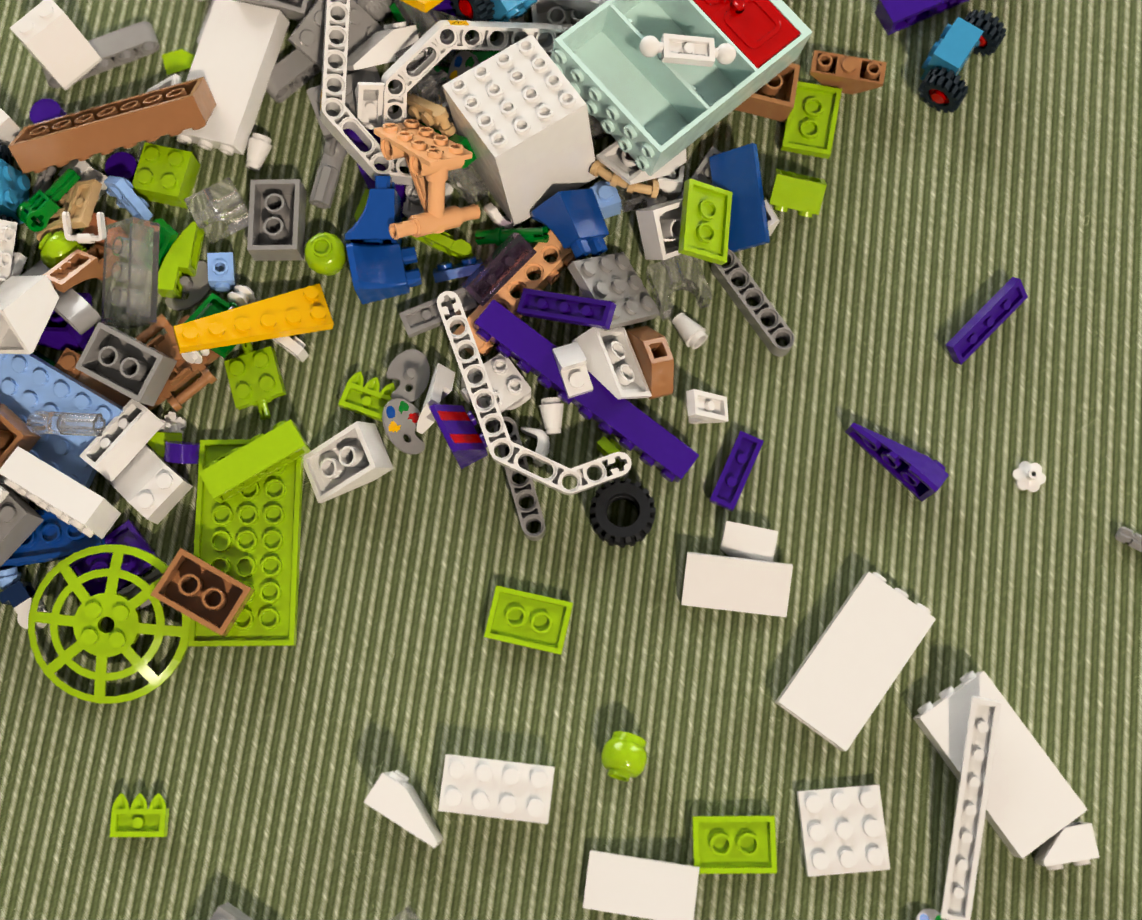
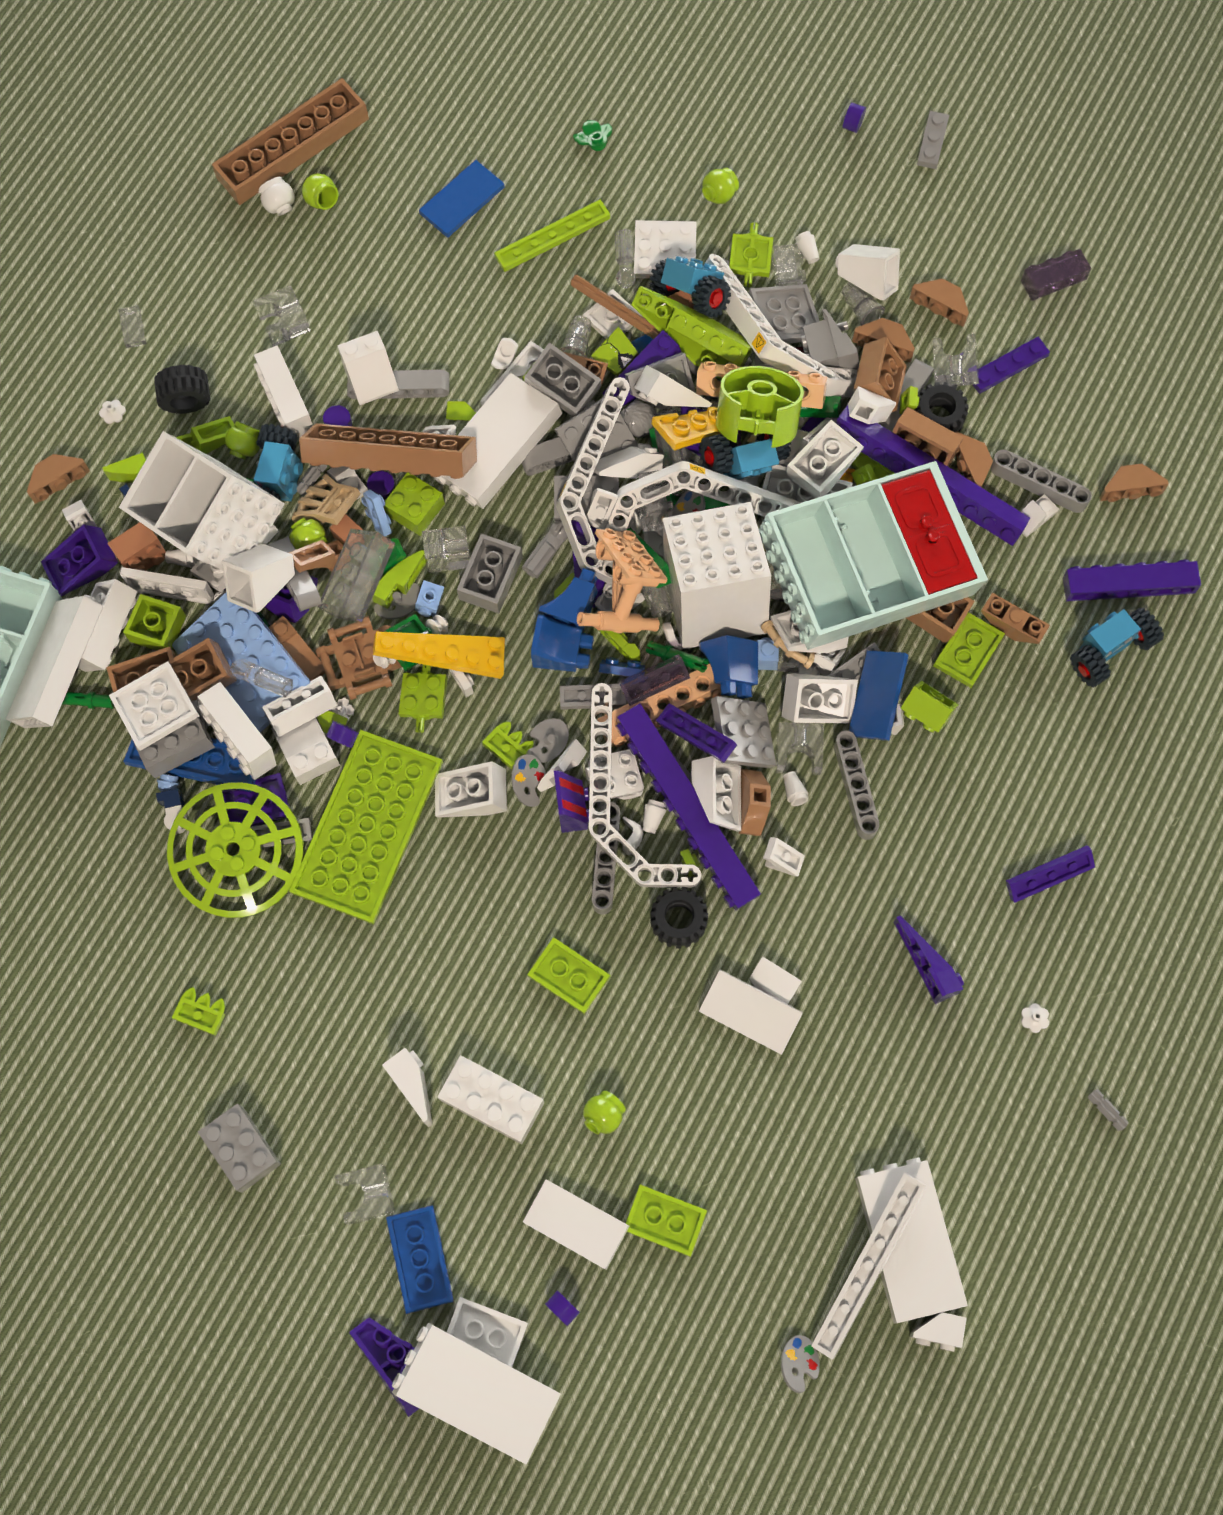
camera: 20 degrees right, 5 degrees down
(43, 205) = (308, 494): green connector -> none
(87, 238) = (330, 532): white piece -> none
(125, 364) = (326, 647): light grey brick -> none
(202, 592) = (318, 852): medium nougat brick -> none
(254, 461) = (398, 763): lime brick -> none
(257, 151) = (496, 509): white cone -> none
(325, 253) = (518, 615): lime piece -> none
(430, 114) = (647, 534): tan plate -> none
(572, 369) = (682, 785): white slope -> none
(687, 50) = (873, 560): white plate -> none
(705, 222) = (840, 704): lime plate -> none
(736, 471) = (787, 919): dark purple plate -> none
(843, 830) = (759, 1245): white plate -> none
(855, 660) = (824, 1111): white brick -> none

